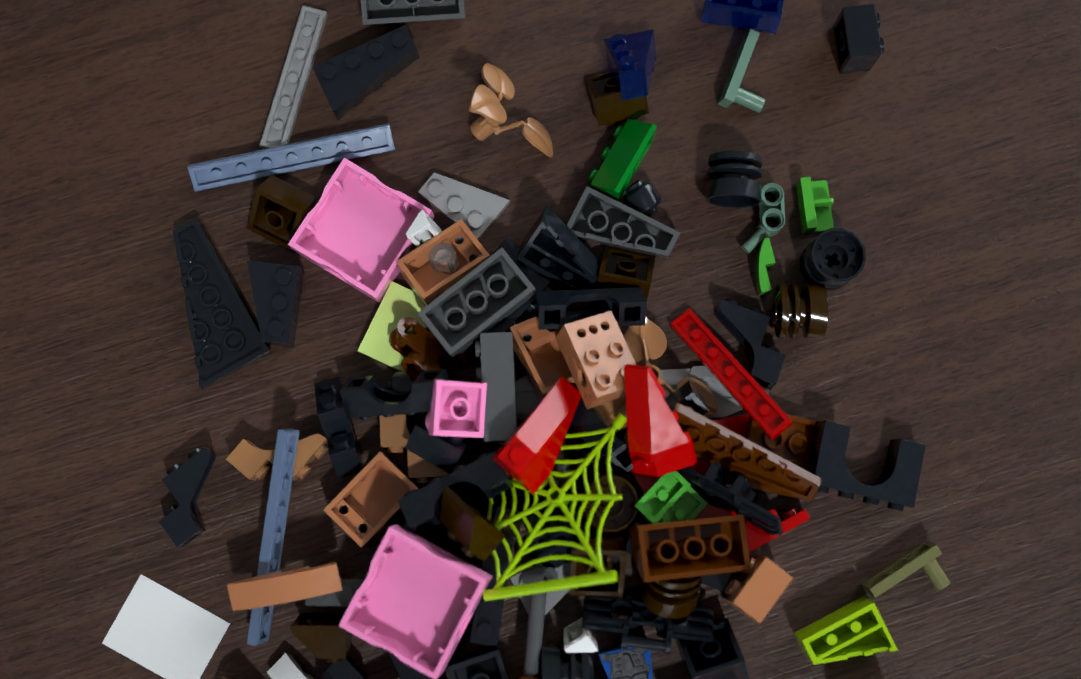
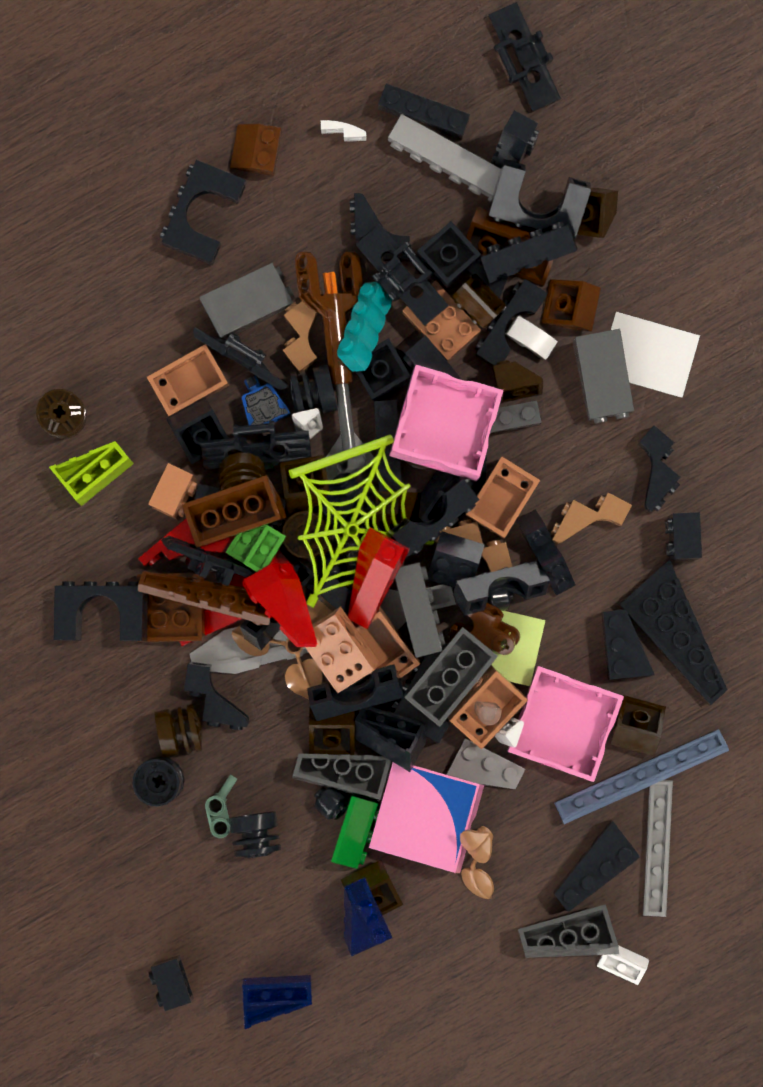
camera: 165 degrees right, 5 degrees up
(174, 409) = (684, 536): none -> black brick
(215, 631) = (603, 375): none -> dark grey slope
(274, 526) = (576, 451): sand blue tile -> none
(284, 586) = (555, 411): nougat slope -> none
(457, 409) = (446, 582): bright pink slope -> none
(468, 525) = (416, 491): dark brown slope -> none
(539, 157) = (425, 816): none -> bright pink tile
(731, 374) = (227, 665): red tile -> none
(732, 90) = (272, 917): sand green piece -> none
(764, 260) = (215, 771): bright green slope -> none
(814, 205) = (180, 829): bright green panel -> none
(921, 556) = (40, 547): olive piece -> none

